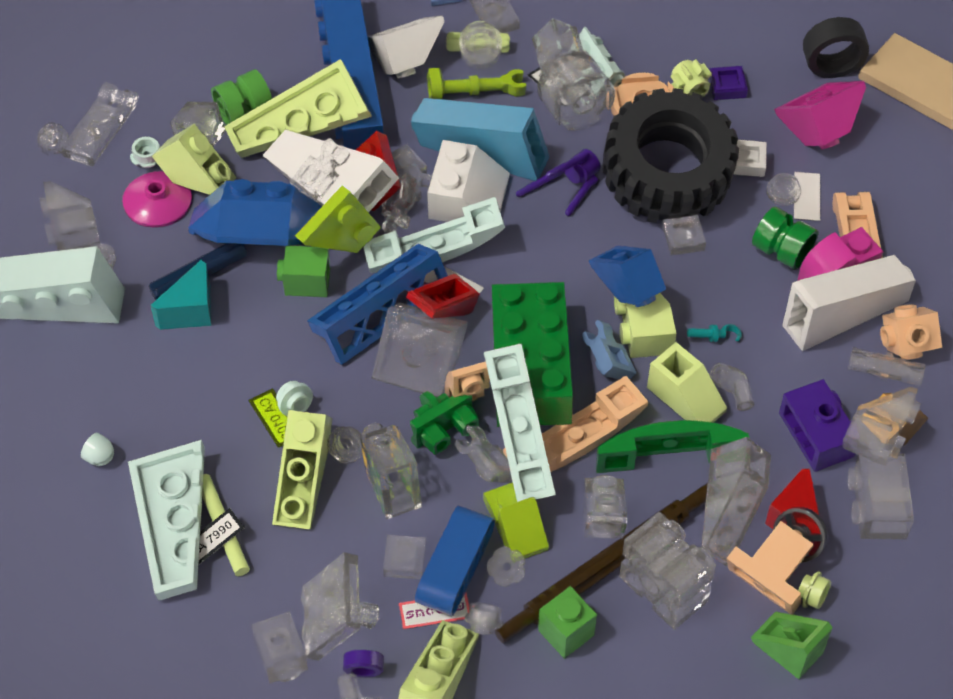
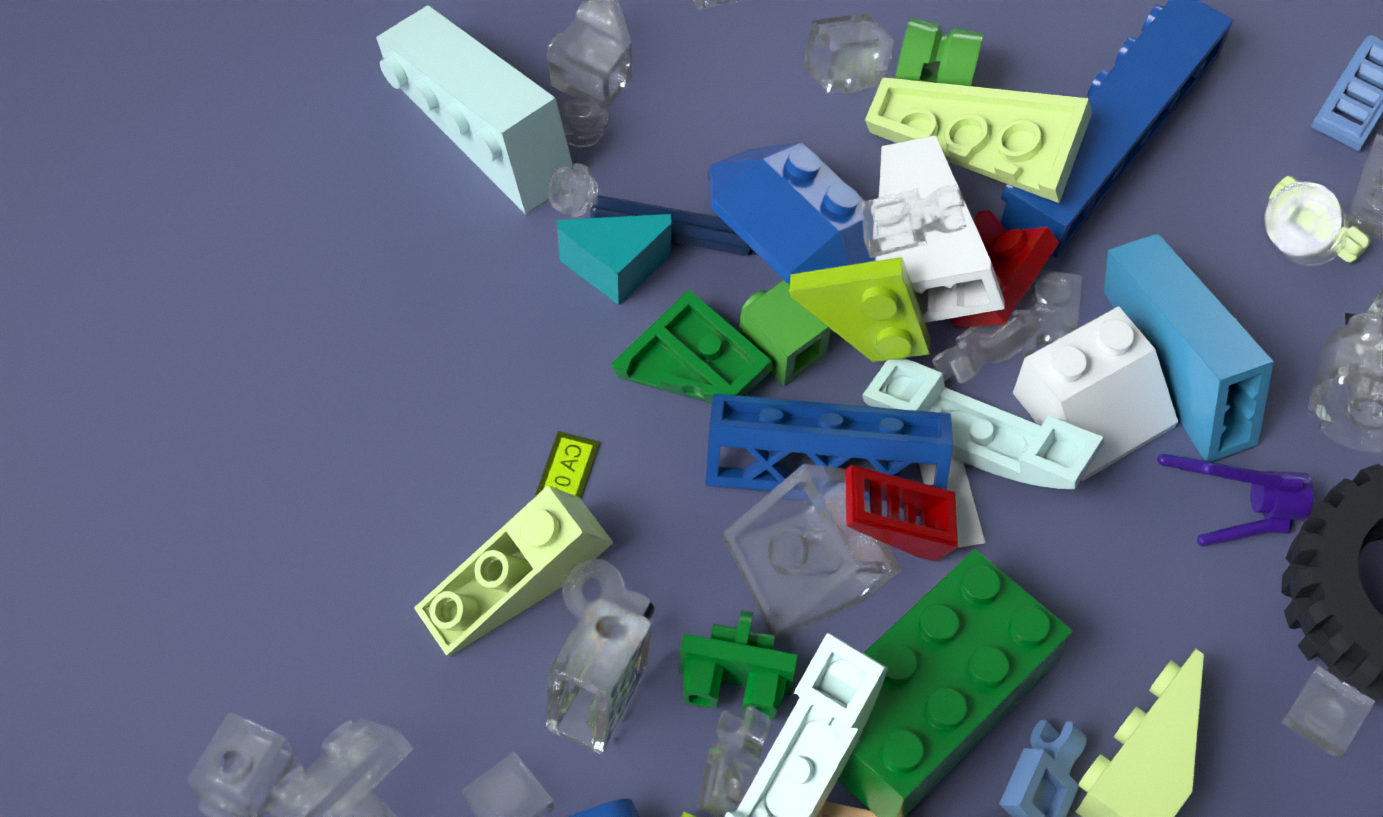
camera: 45 degrees right, 5 degrees up
(97, 450) = (332, 341): light aqua hinge -> none
(127, 294) = (572, 190): none -> clear plate
(142, 152) = (766, 39): light aqua plate -> none
(155, 200) = (727, 119): dark pink dish -> none
(169, 511) = (317, 486): light aqua wing -> none
(193, 162) = (798, 92): yellowish green slope -> none
(215, 509) = (360, 556): yellowish green bar -> none
(218, 534) = (327, 560): sticker -> none
(275, 314) = (693, 354): none -> green wing
(294, 397) = (599, 476): light aqua plate -> none
(406, 45) = (1214, 149): white slope -> none
(468, 381) = (794, 644): light nougat slope -> none
(506, 83) = (1253, 270): lime piece -> none
(629, 274) = (1168, 702): blue slope -> none

